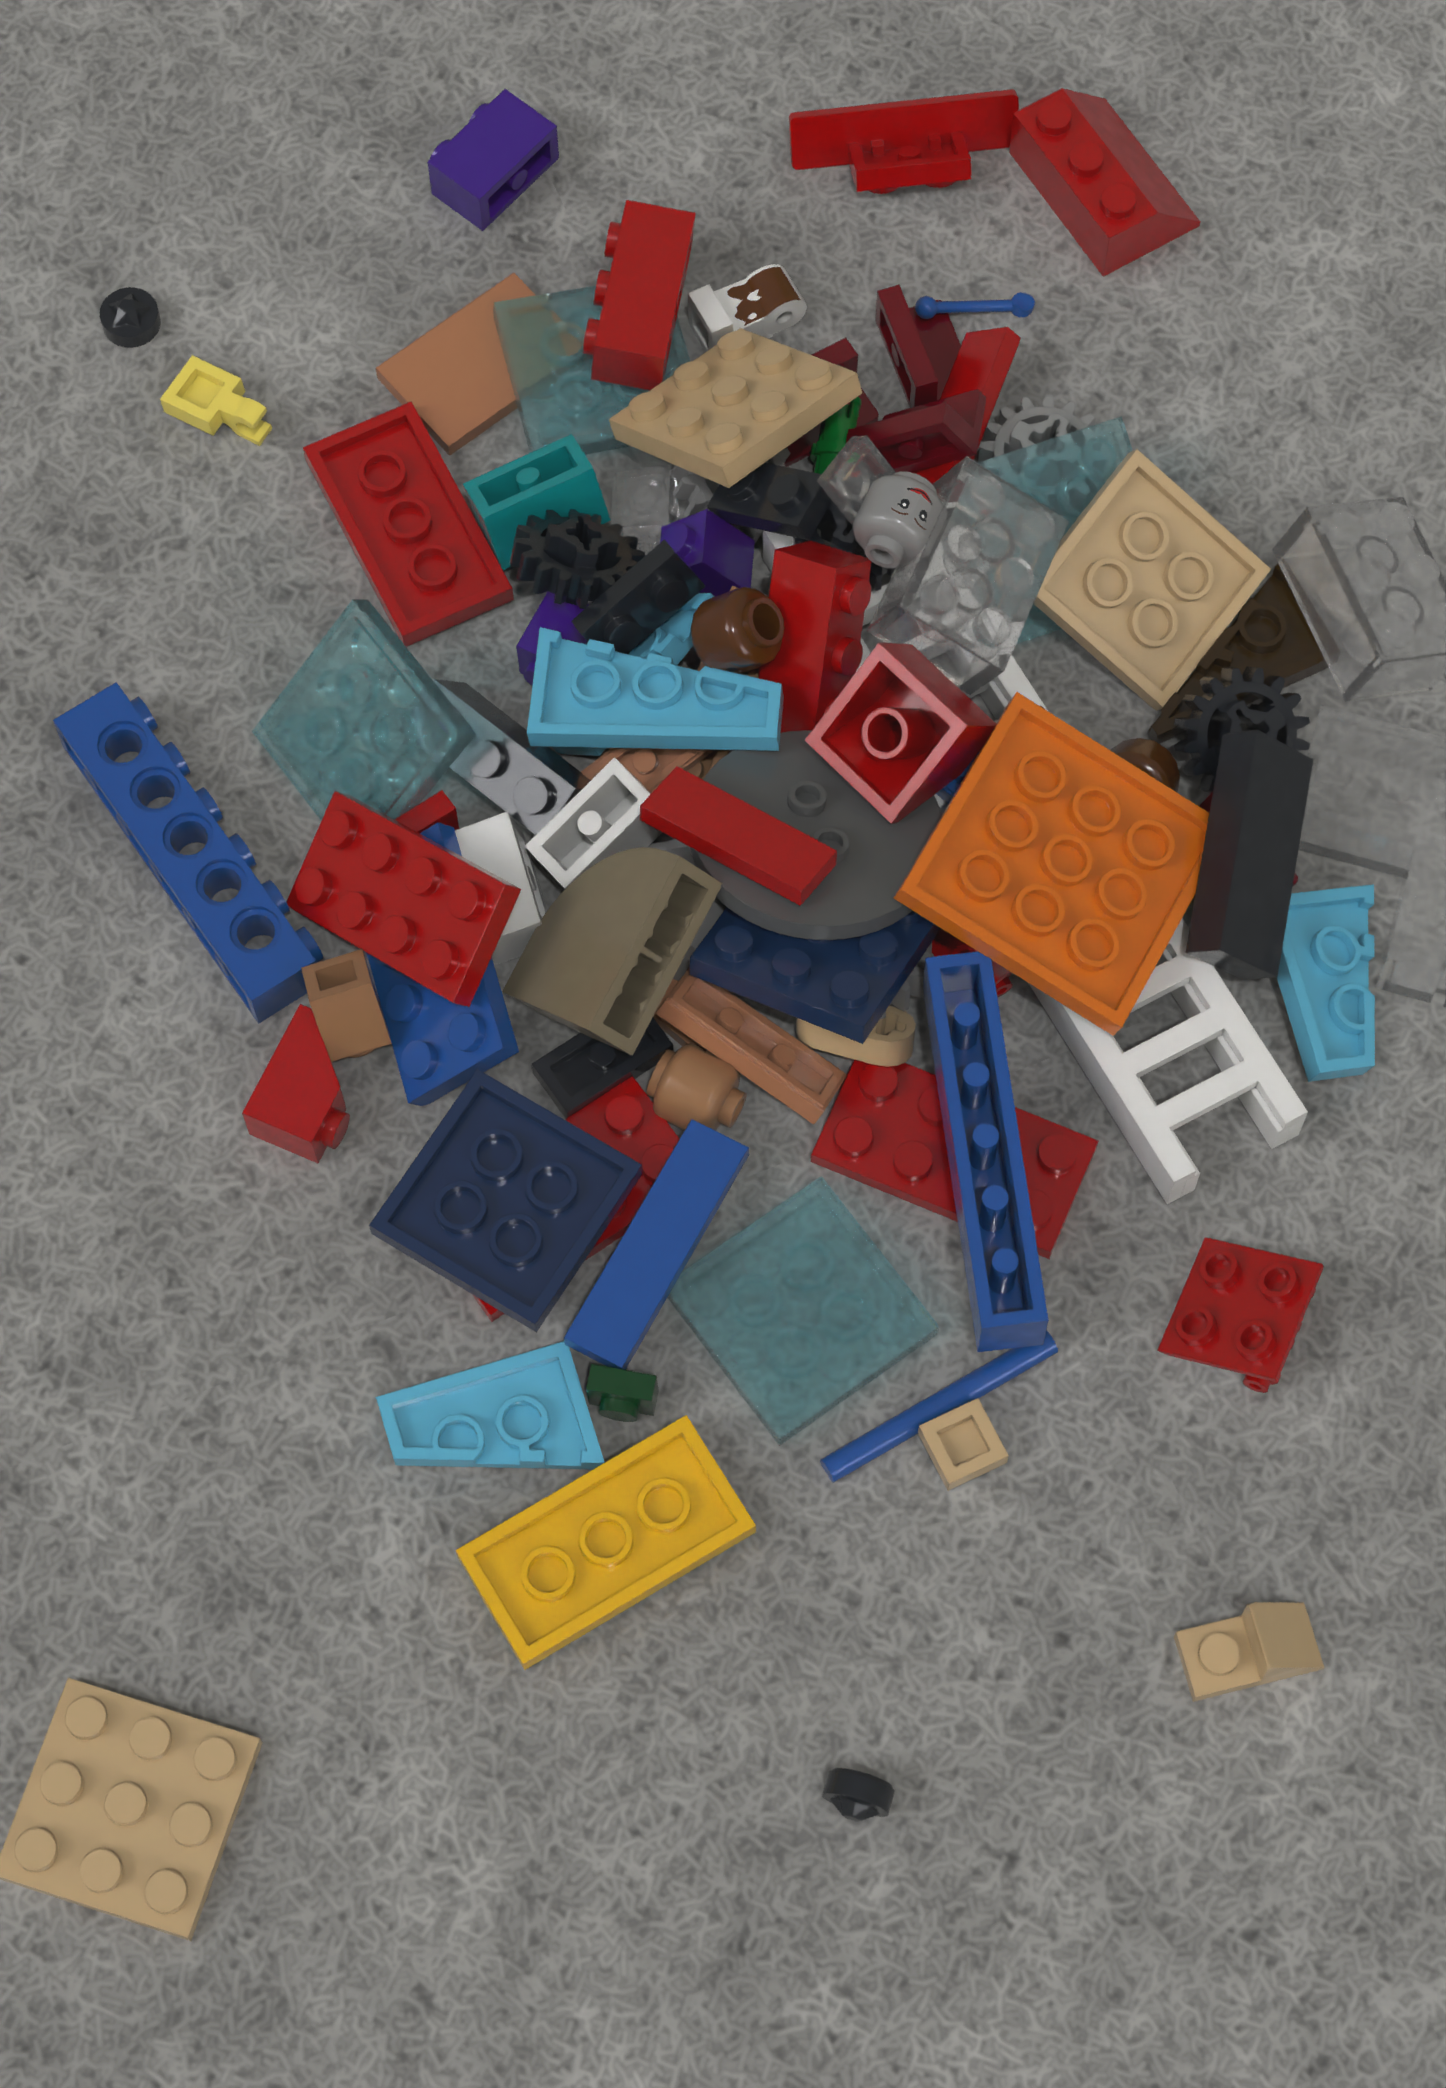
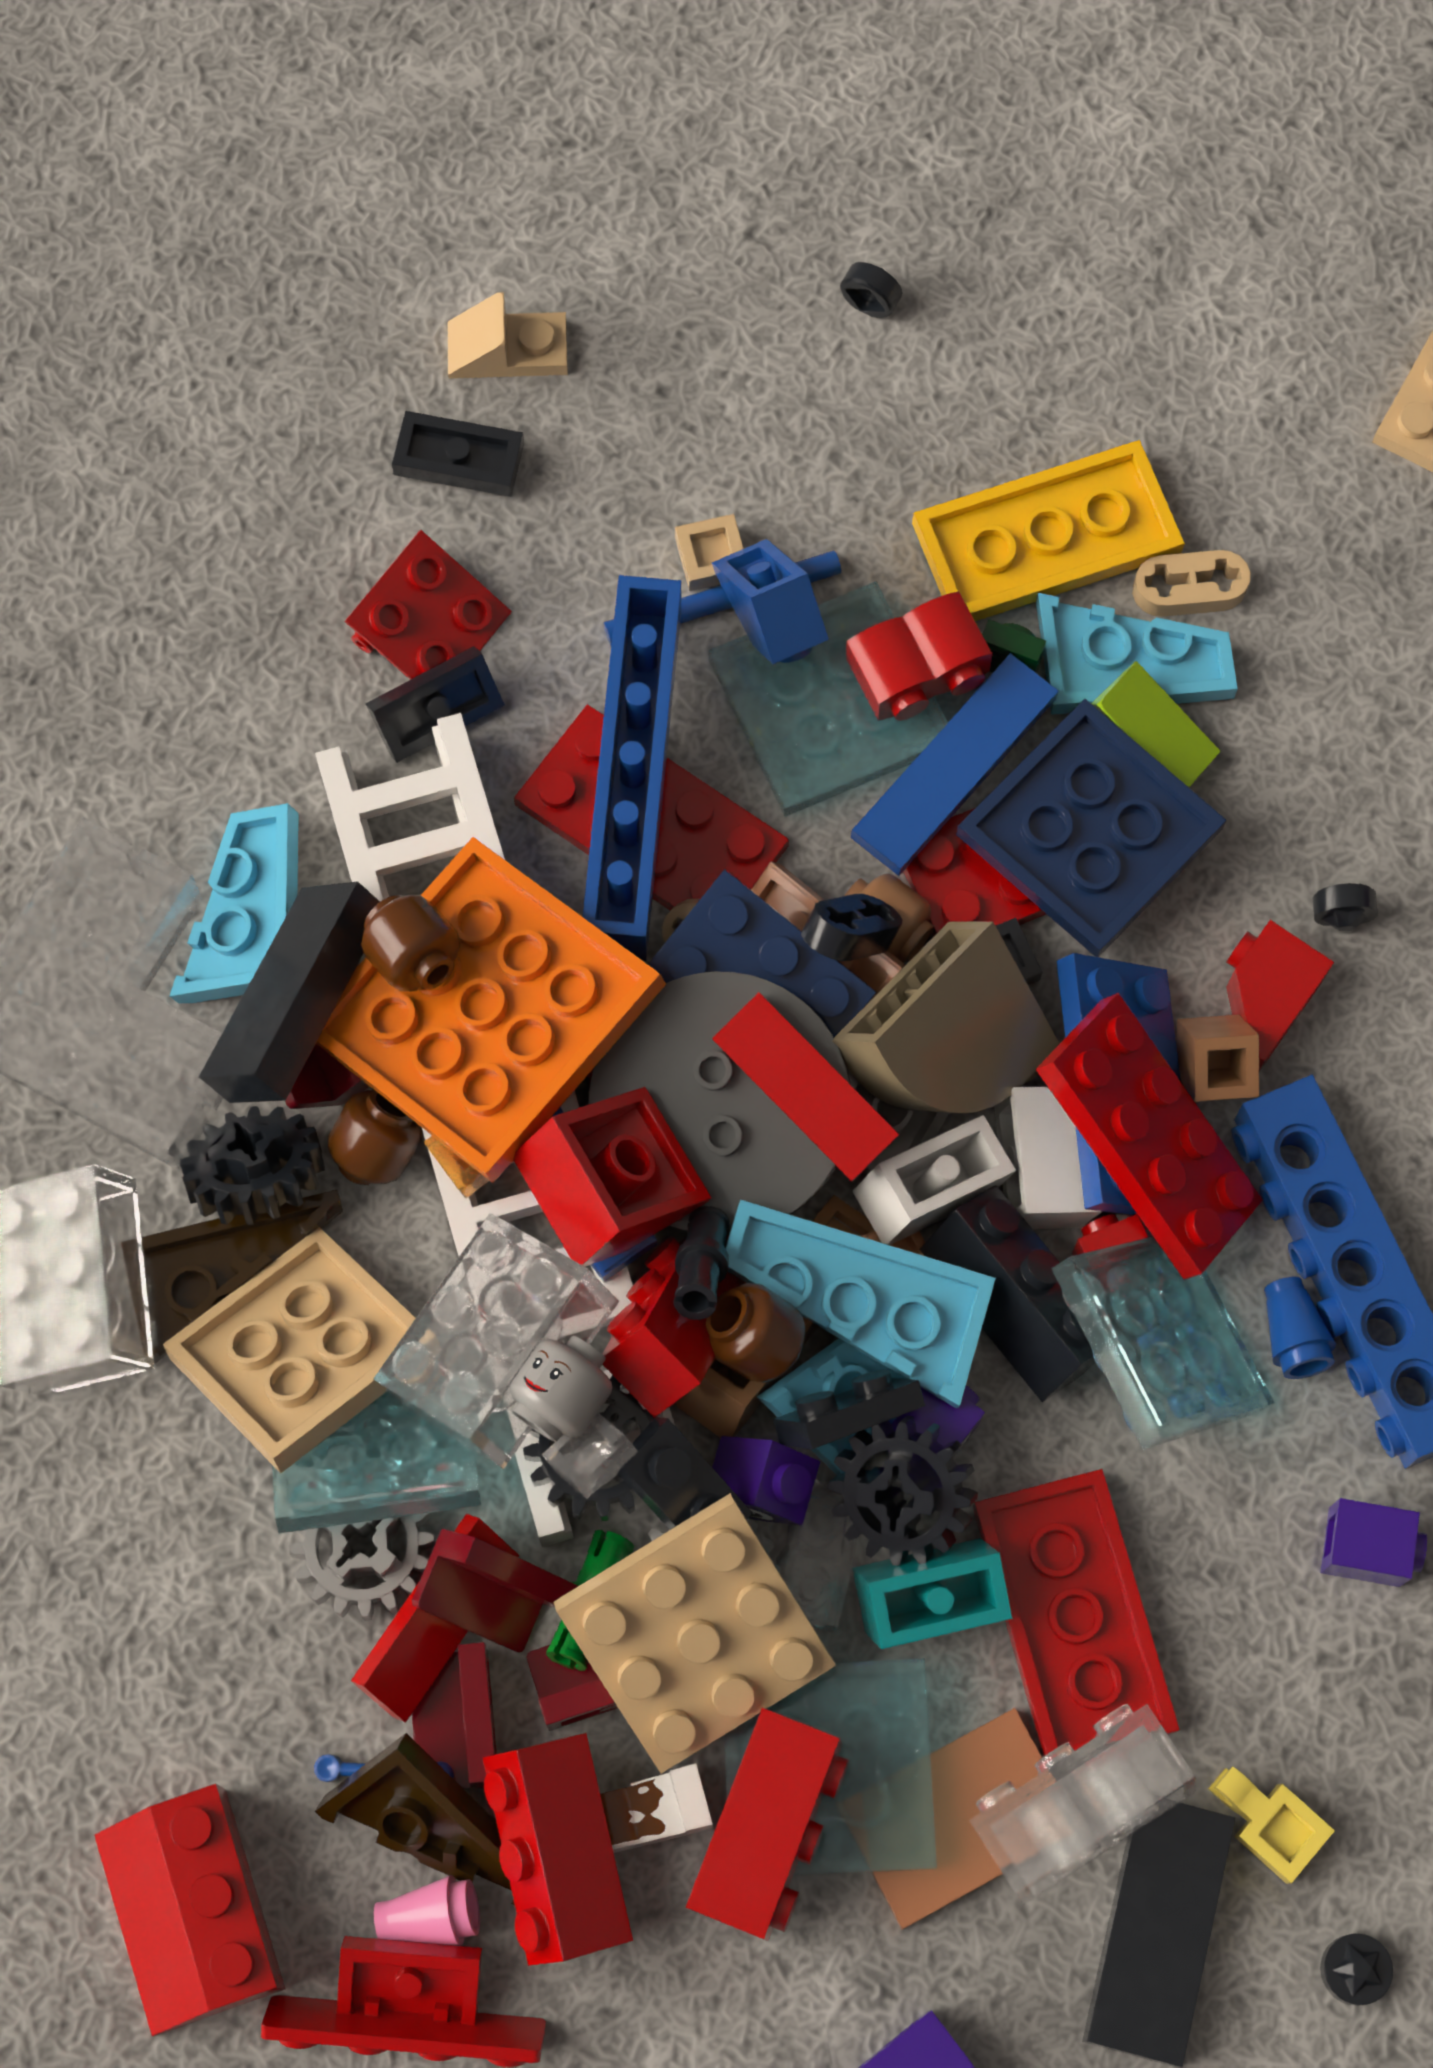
camera: 170 degrees left, 5 degrees up
(149, 624) = (1373, 1543): none -> dark purple brick
(236, 1194) = (1345, 906): none -> black tile
(239, 791) = (1297, 1331): none -> blue cone
(299, 310) = (1159, 1935): none -> black piece
(377, 340) = (1083, 1801): none -> clear brick
(437, 1505) = (1190, 595): none -> tan beam
(457, 1330) = (1157, 723): none -> lime slope
(715, 1010) = (851, 927): none -> black beam
(716, 1338) = (919, 657): none -> red brick
(798, 670) = (701, 1263): none -> black pin
(814, 249) = (556, 1850): none -> red brick
(887, 1370) = (772, 601): none -> blue slope
(903, 210) = (431, 1914): none -> bright pink cone
(911, 267) = (420, 1813): none -> dark brown wing
(1149, 892) = (410, 943): none -> reddish brown head
(1205, 1216) = (412, 709): none -> black plate
(1264, 1501) = (458, 453): none -> black plate

